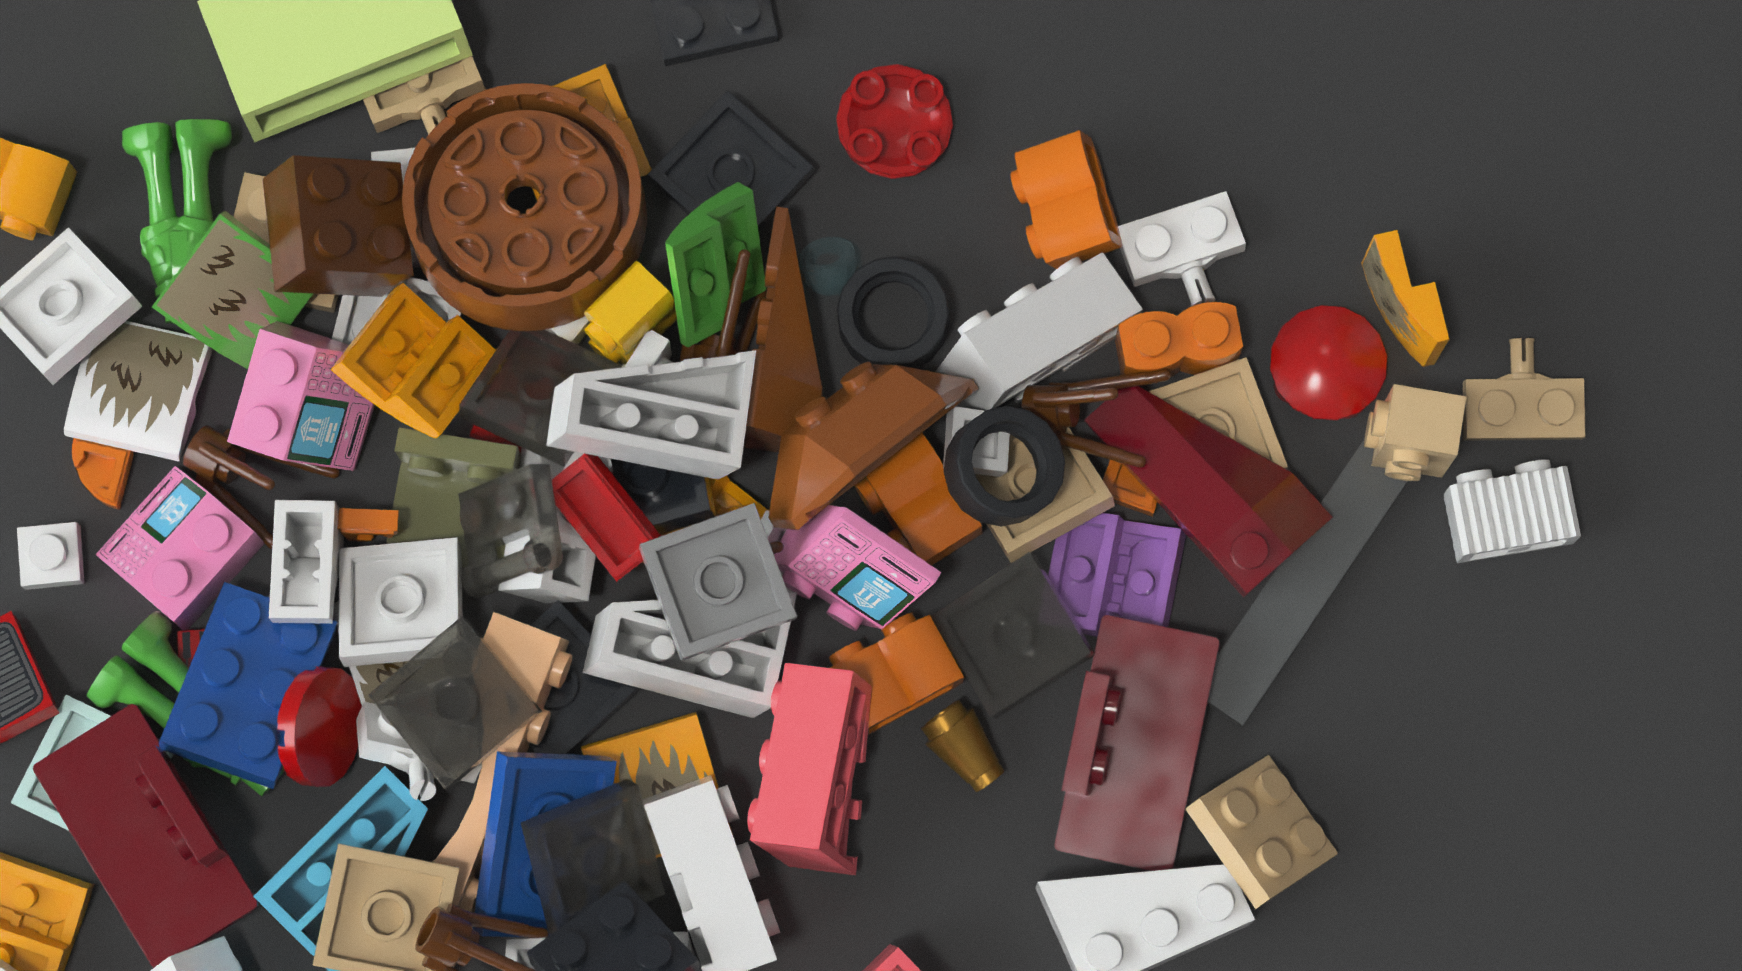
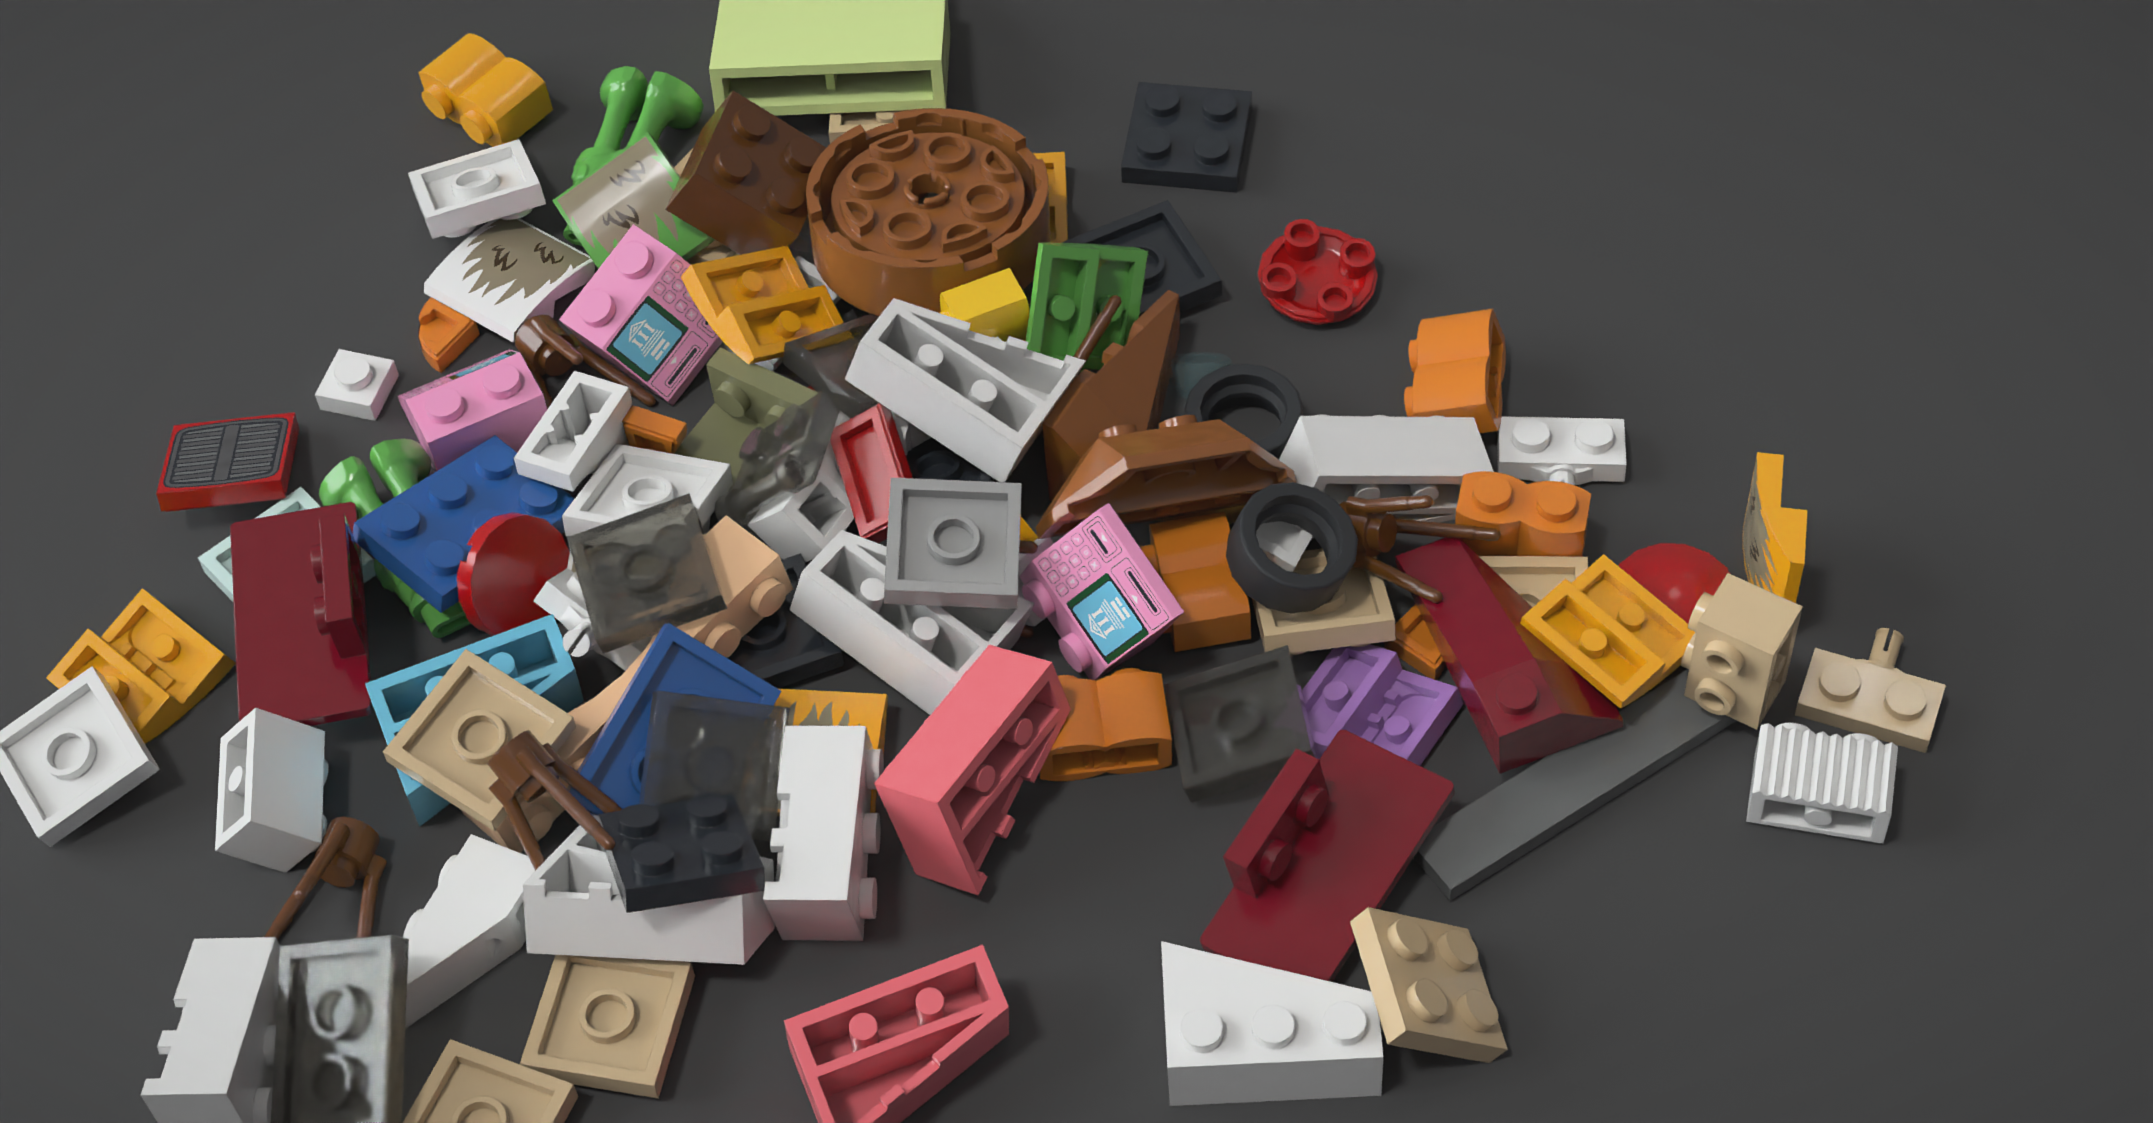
camera: 25 degrees right, 25 degrees down
(963, 745) = (1144, 809): pearl gold cone -> none
(1297, 439) = (1610, 631): none -> light orange slope

